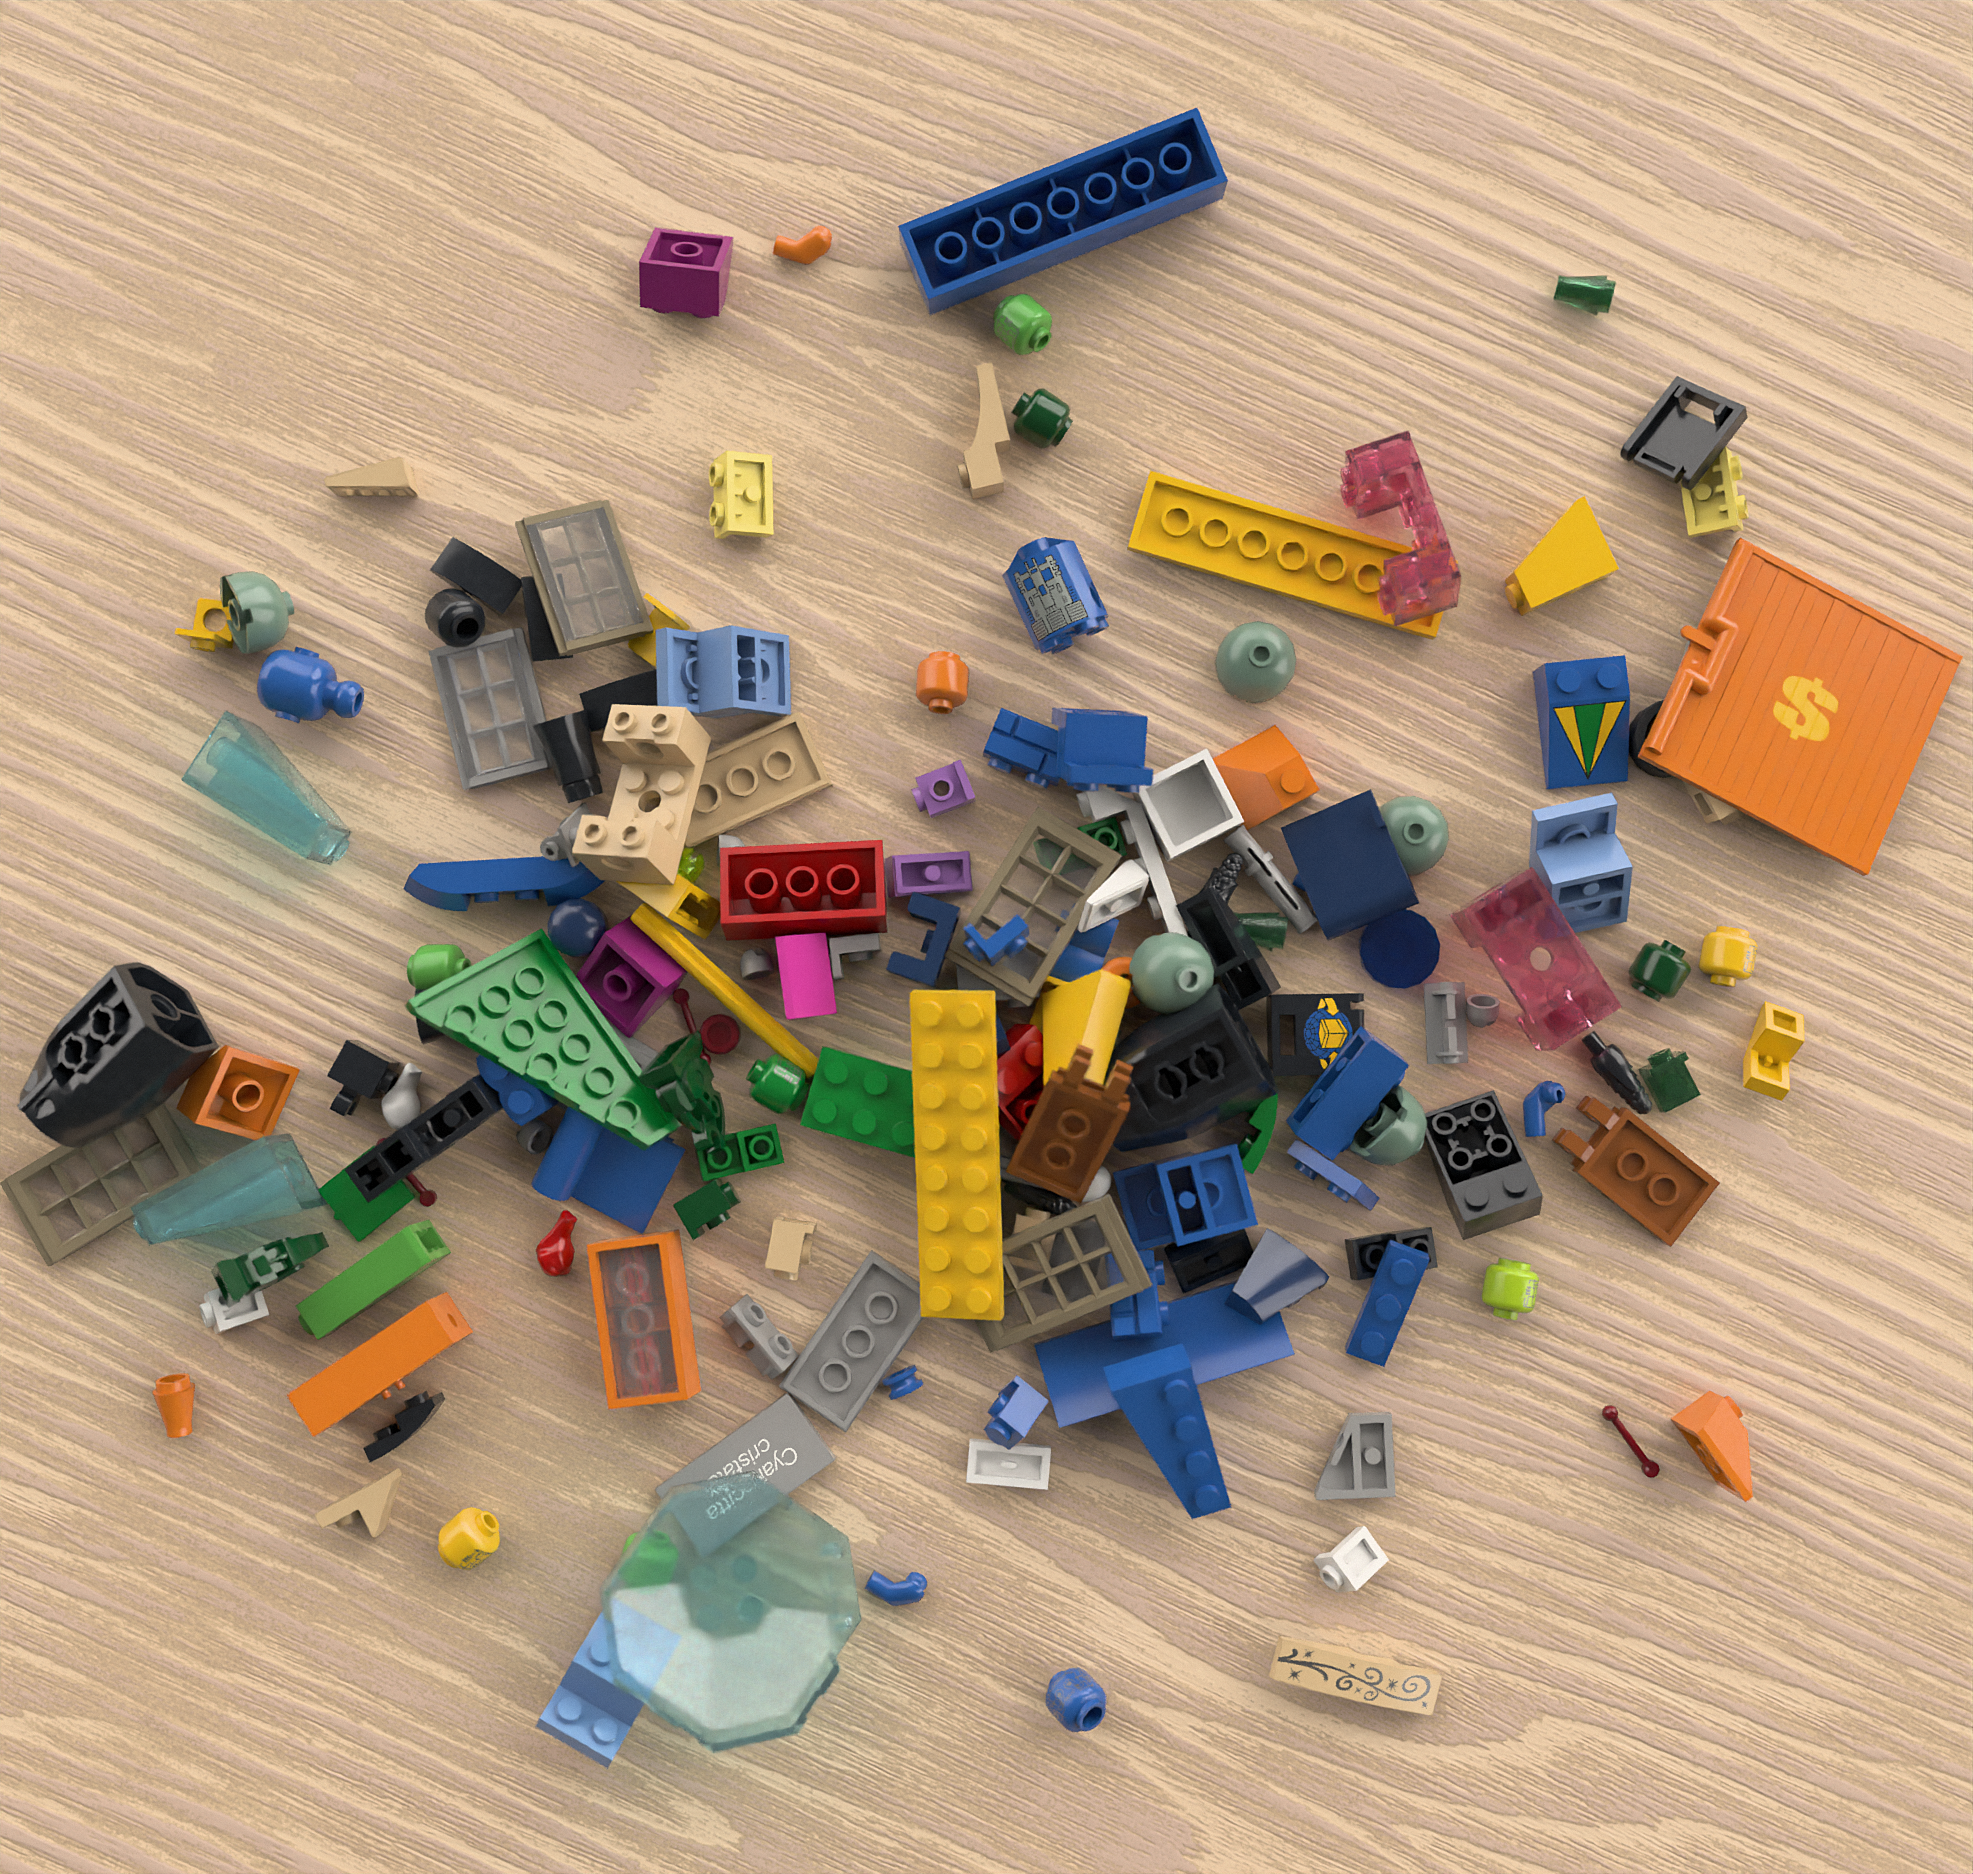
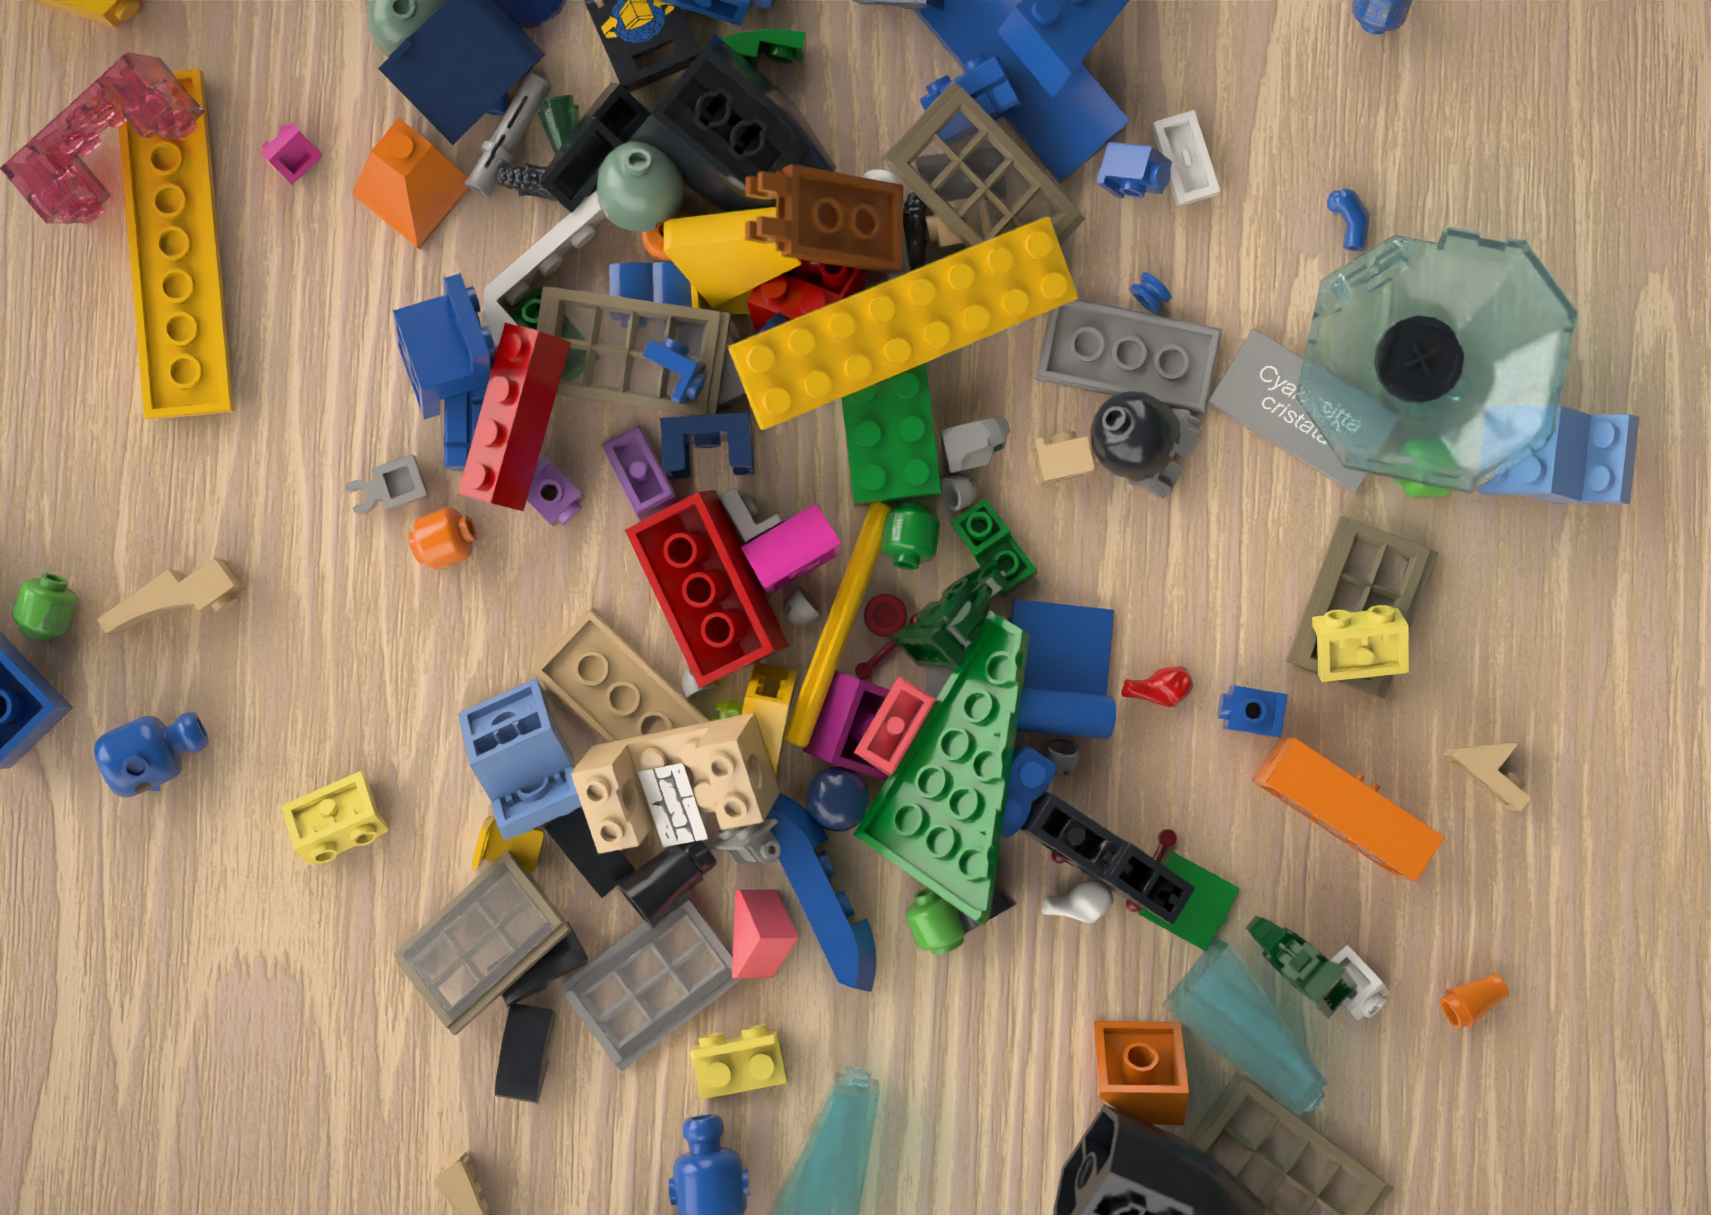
camera: 115 degrees left, 0 degrees up
(362, 1073) = (1070, 953): black brick -> none
(372, 1279) = (1270, 855): bright green slope -> none
(393, 753) = (738, 1062): none -> light yellow bracket
(410, 1420) = (1387, 757): black slope -> none
(455, 618) = (576, 1055): black head -> none
(468, 1538) = (1480, 652): yellow head -> none
(492, 816) = (761, 934): none -> coral slope
(493, 1333) = (1271, 714): none -> blue brick
(518, 1437) = (1361, 643): none -> light yellow bracket
(553, 1452) = (1360, 572): none -> dark tan piece
(615, 1002) = (894, 726): none -> coral slope
(628, 784) = (673, 805): none -> white sticker
(643, 1319) = (1195, 569): brick -> none
(685, 272) = (126, 972): magenta slope -> none
(707, 1206) = (1059, 554): dark green brick -> none
(742, 1594) = (1418, 359): none -> black tile
(780, 1315) = (1134, 435): none -> black cylinder
(799, 1141) = (958, 491): none -> light grey hinge
(806, 249) = (52, 859): orange arm -> none
(834, 1172) = (973, 443): none -> light grey rock
(862, 361) = (147, 752): none -> blue piece
(1006, 660) = (394, 484): none -> light grey plate
(1014, 783) = (514, 417): none -> red brick
(1041, 418) = (134, 548): dark green head -> none
(1054, 594) = (306, 460): blue cylinder -> none
(1115, 896) = (585, 274): white slope -> none
(1185, 1197) = (853, 87): blue bracket -> none
(1188, 805) = (467, 238): white piece -> none
(1208, 1258) = (901, 48): black slope -> none
(1255, 662) = (296, 237): sand green cylinder -> none
(1330, 686) = (291, 153): none -> dark pink tile

